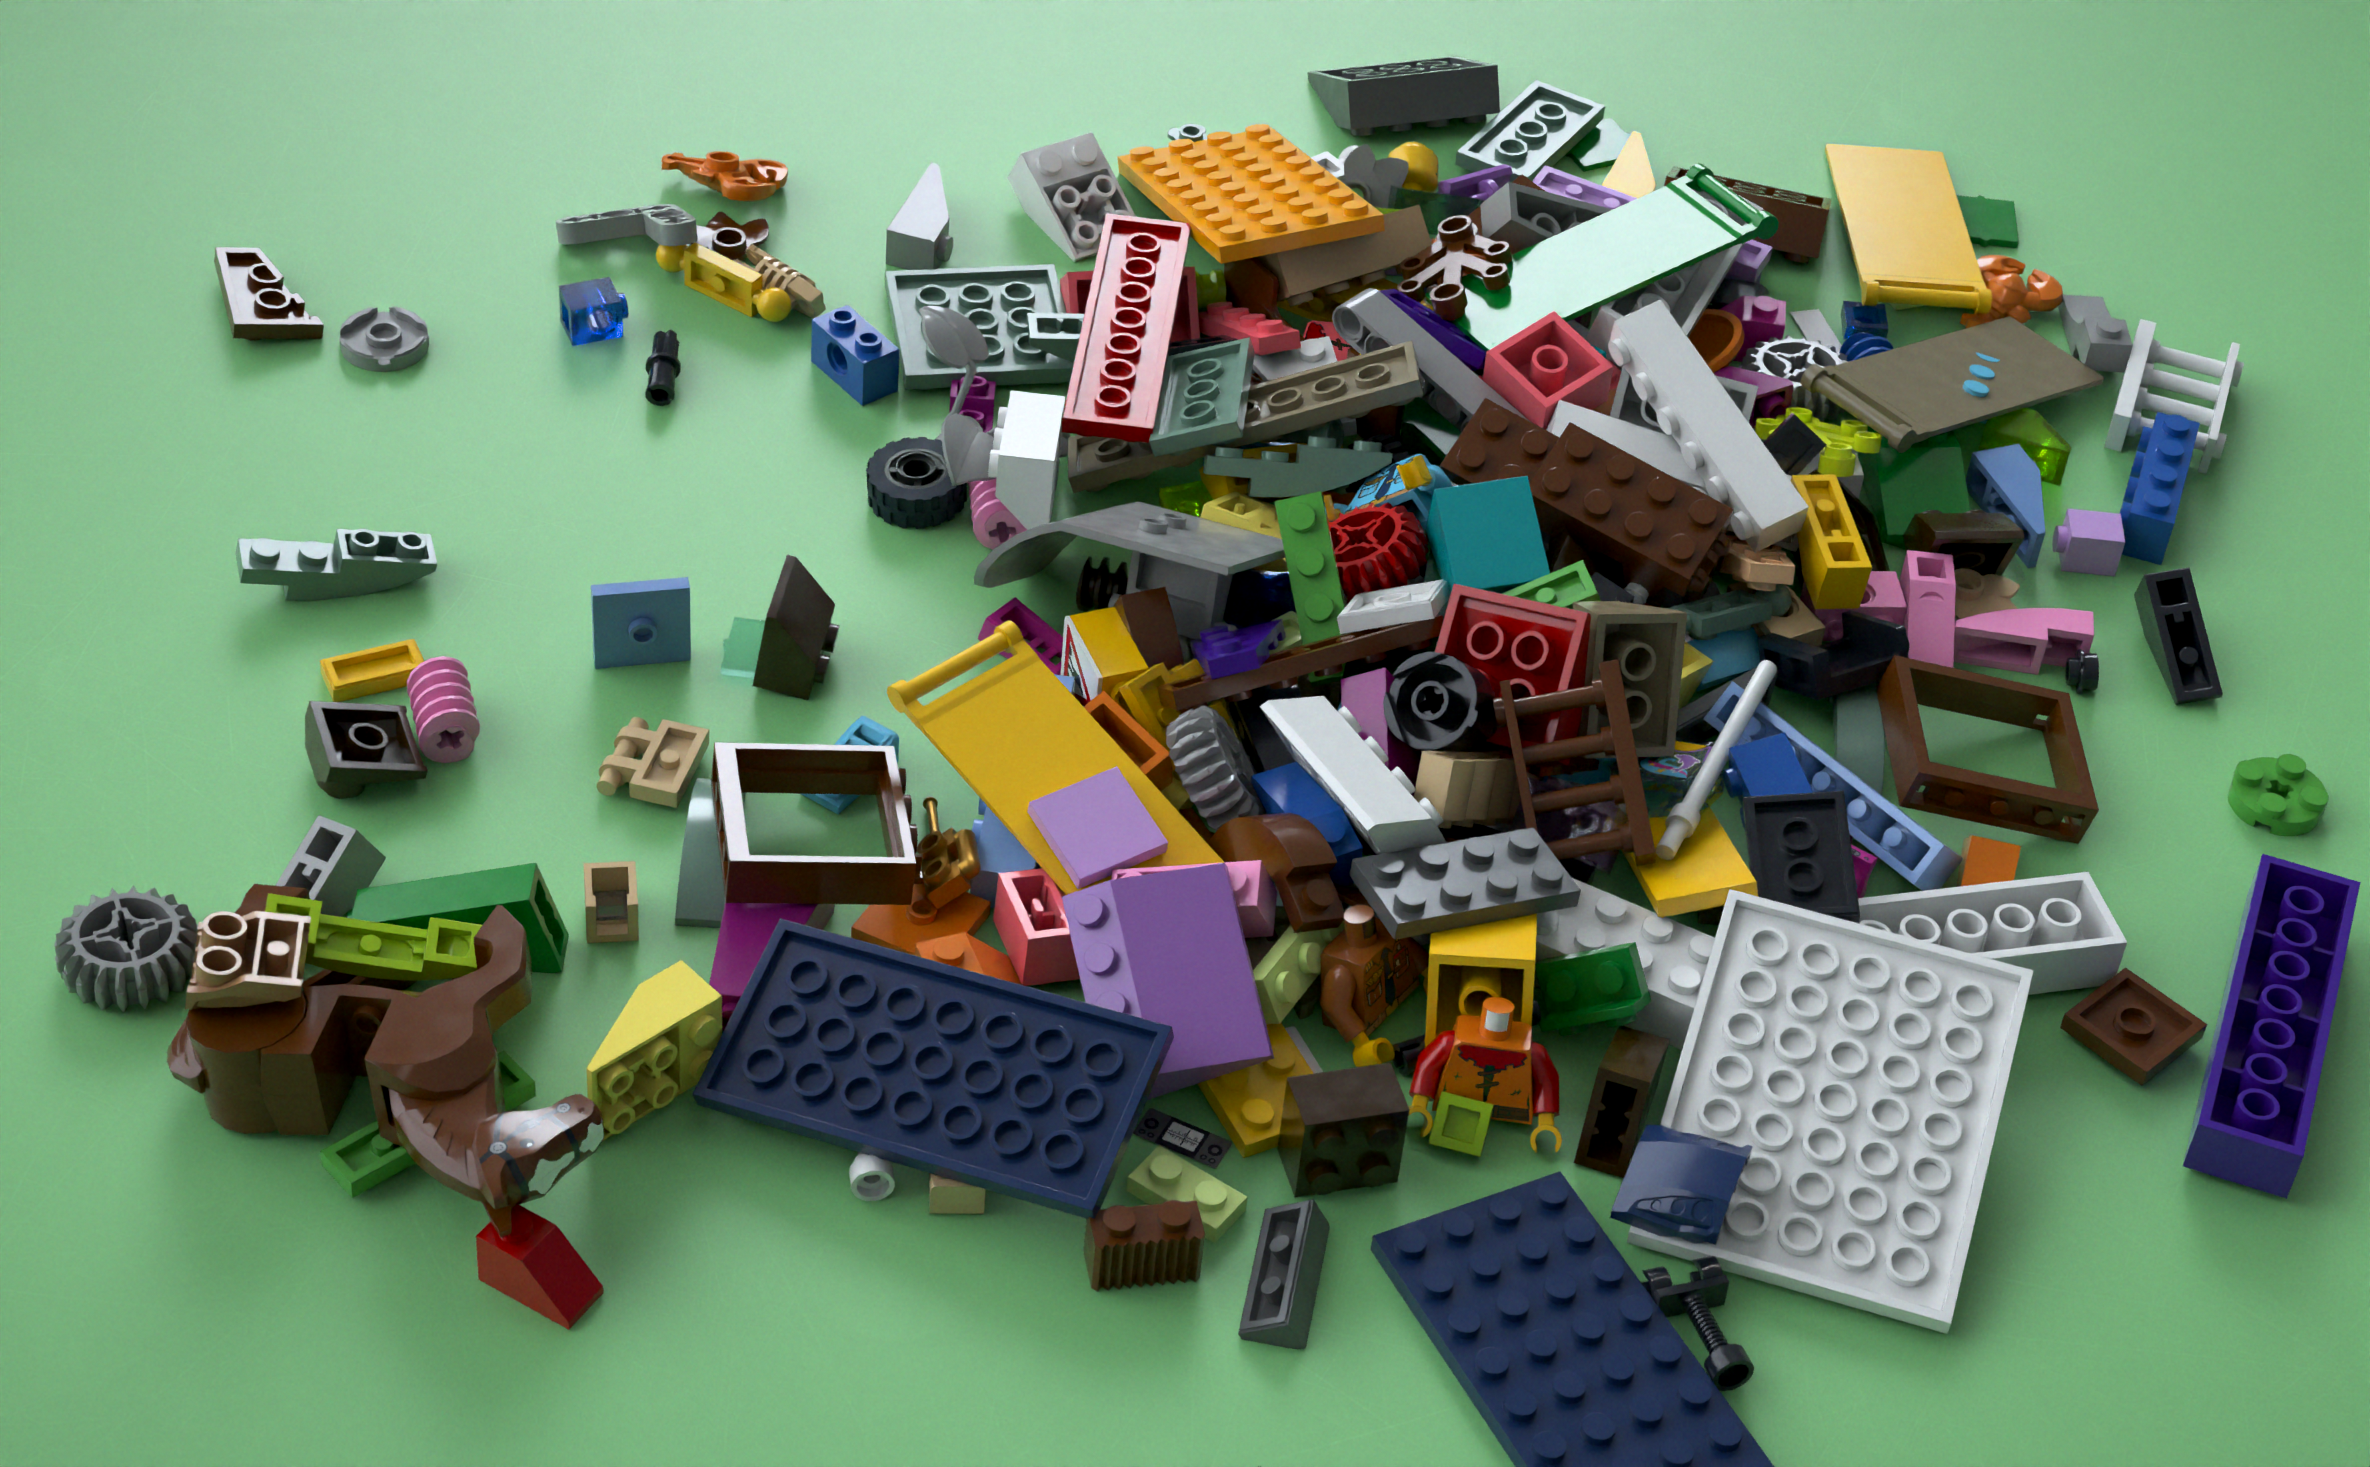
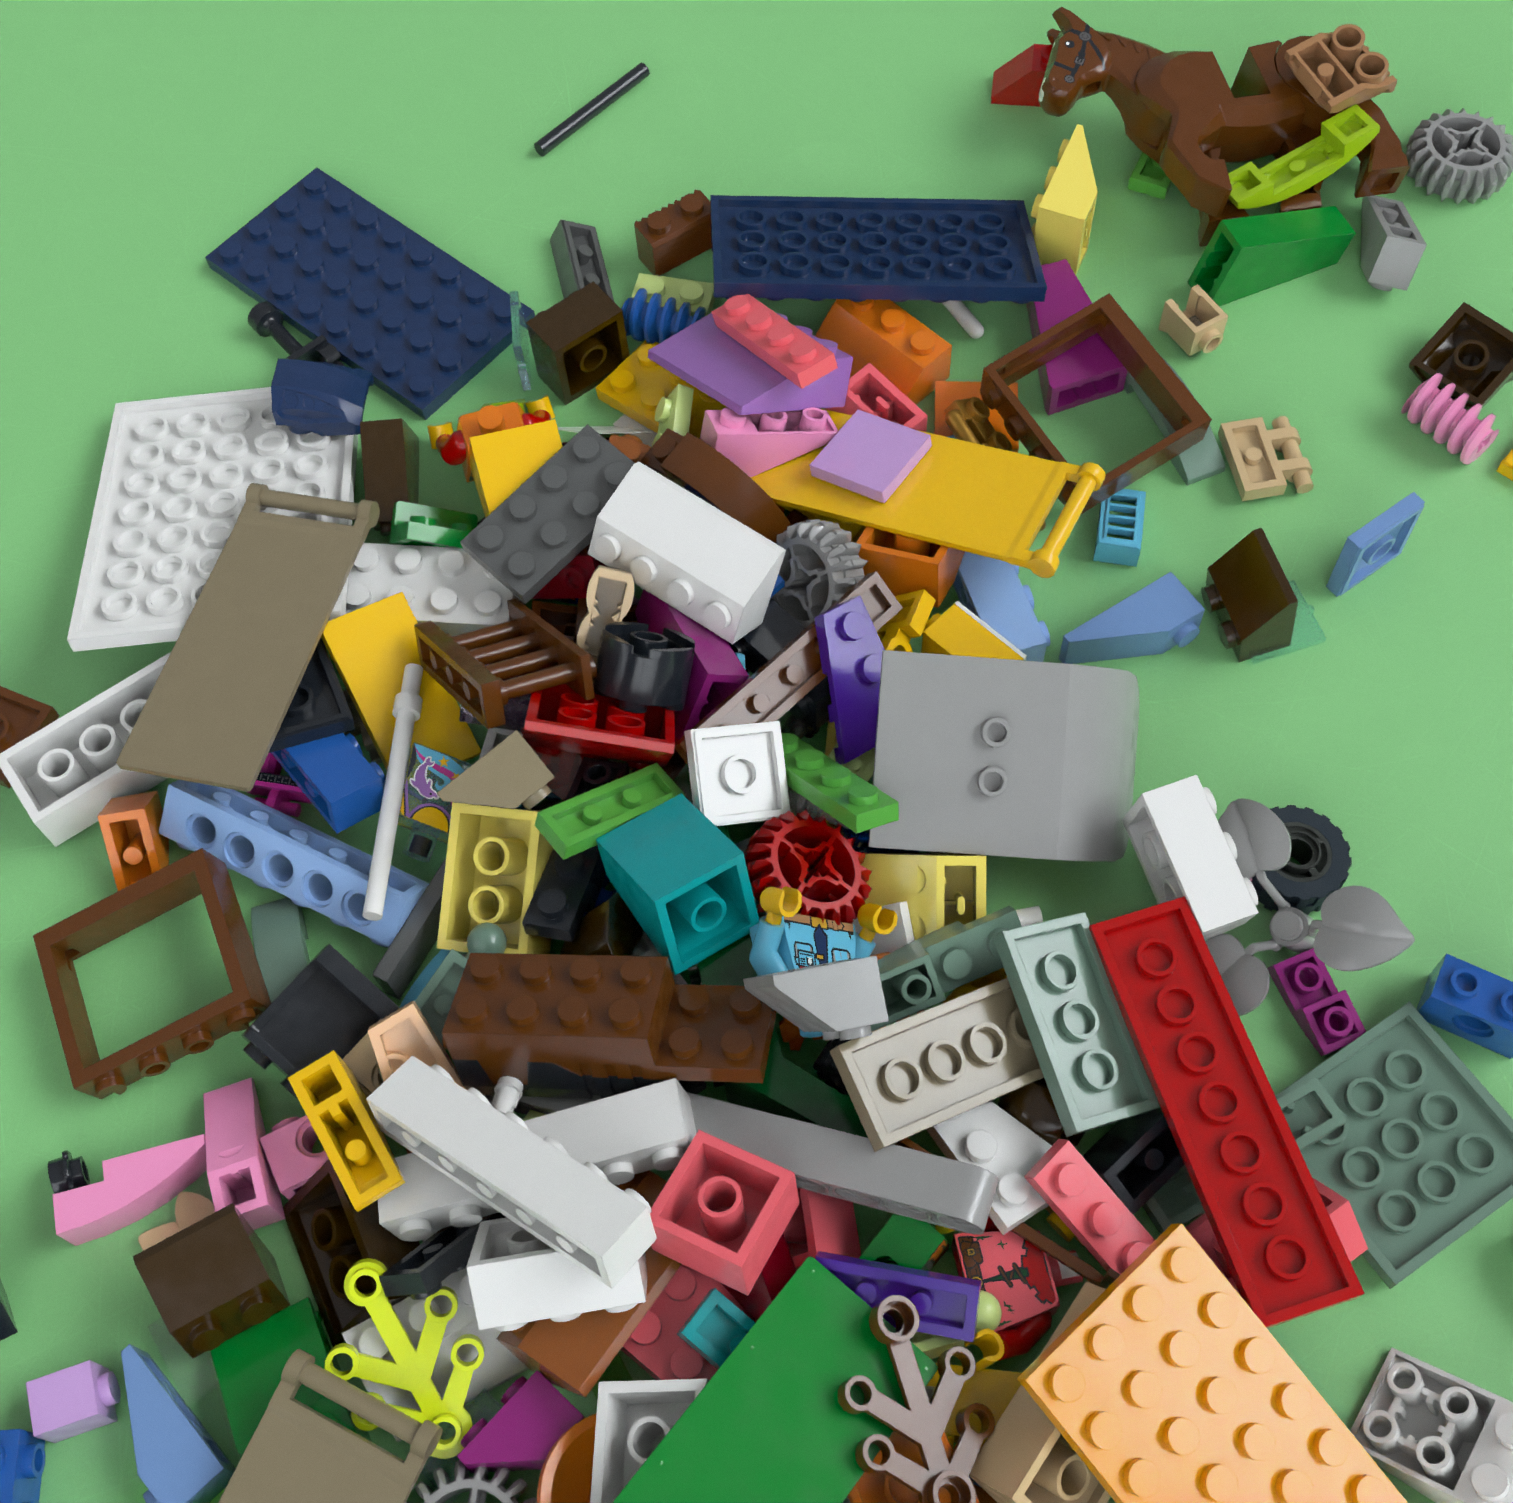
camera: 165 degrees right, 20 degrees up
(884, 660) = (1138, 626): none -> medium blue slope
(1143, 928) = (774, 340): none -> coral plate
(1222, 1135) = (652, 321): none -> blue piece
(1365, 1021) = (604, 429): none -> white sticker
(1411, 1170) = (520, 340): none -> clear light blue piece
(1419, 404) = (826, 998): none -> light grey slope
(1826, 898) = (248, 641): none -> dark tan flag

